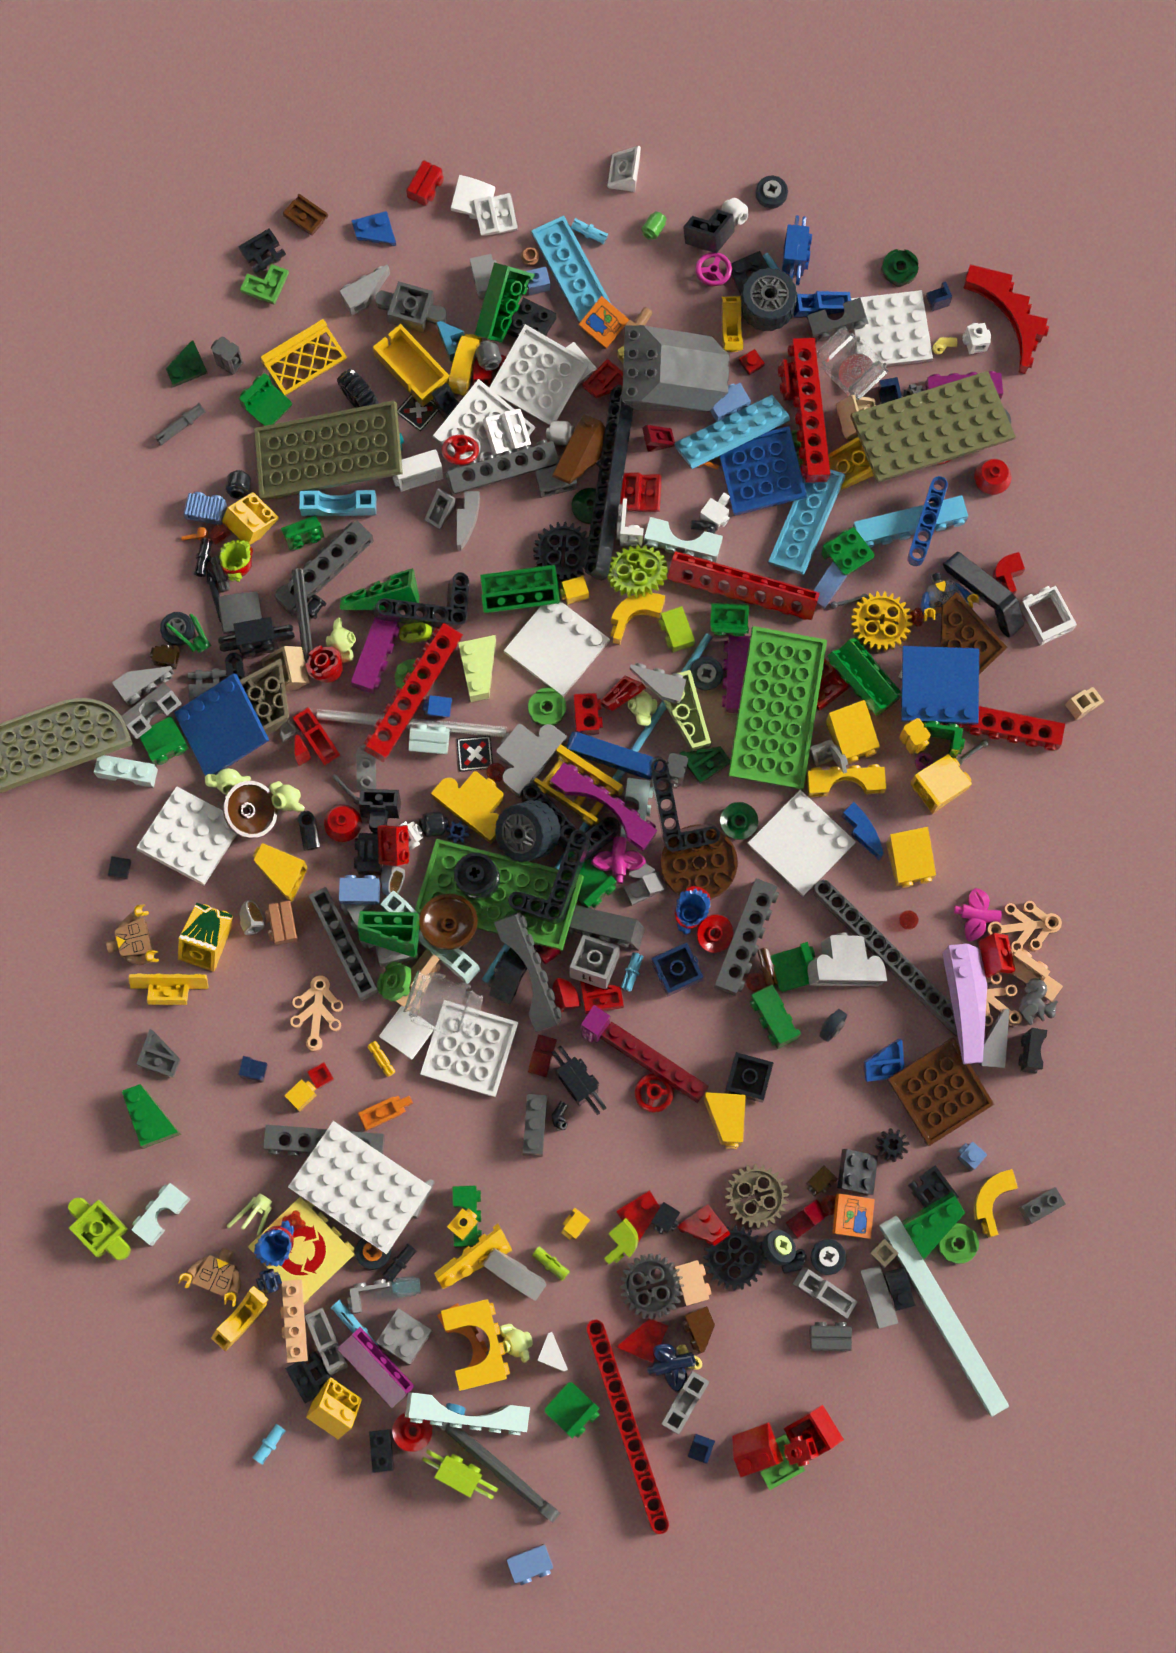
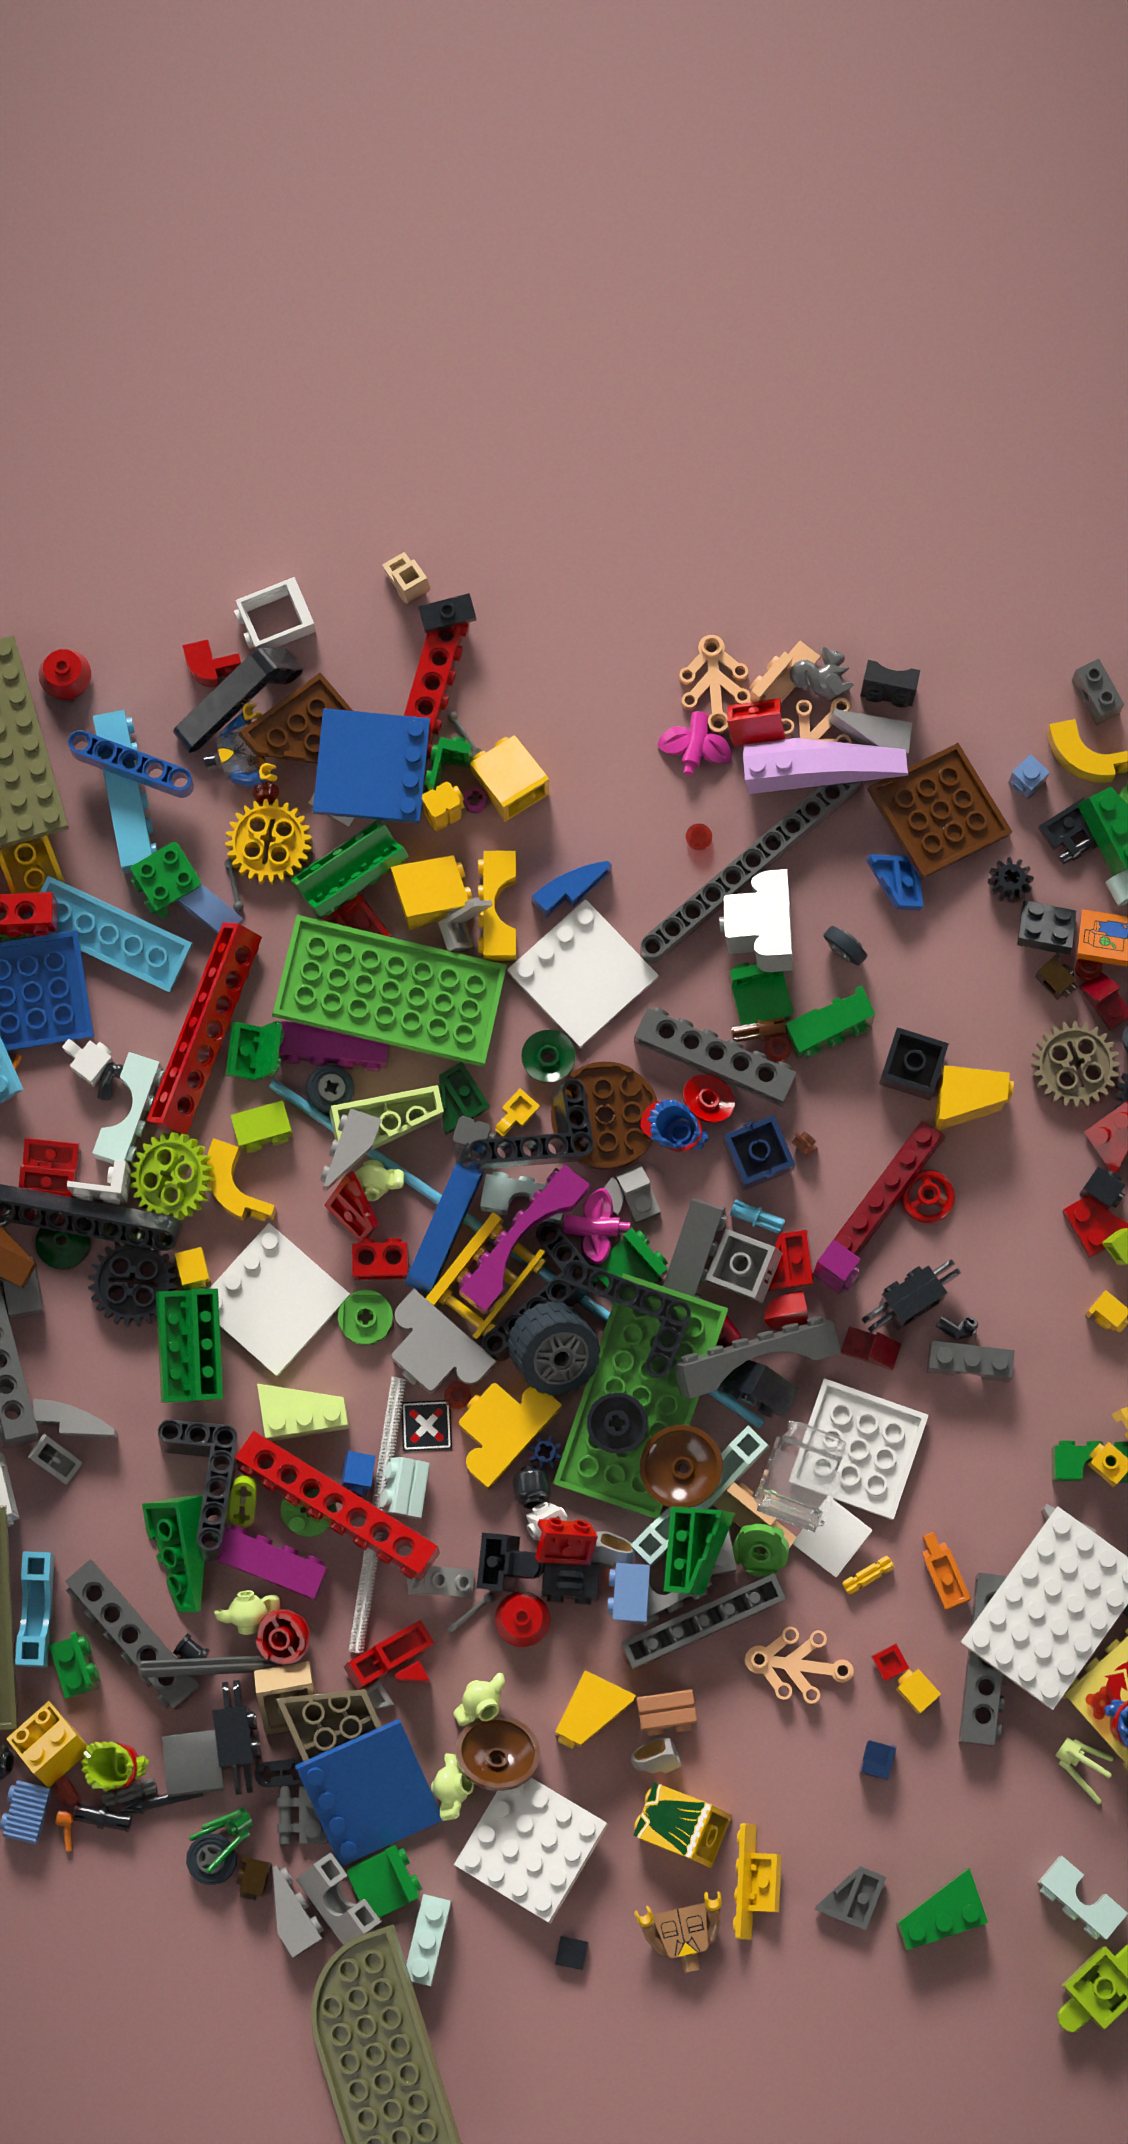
camera: 85 degrees left, 0 degrees up
(308, 832) = (535, 1669): black piece -> none
(687, 1003) = (804, 1142): none -> copper plate
(698, 802) = (517, 1110): none -> yellow plate
(911, 857) = (614, 824): yellow slope -> none
(1058, 731) = (447, 613): none -> black plate

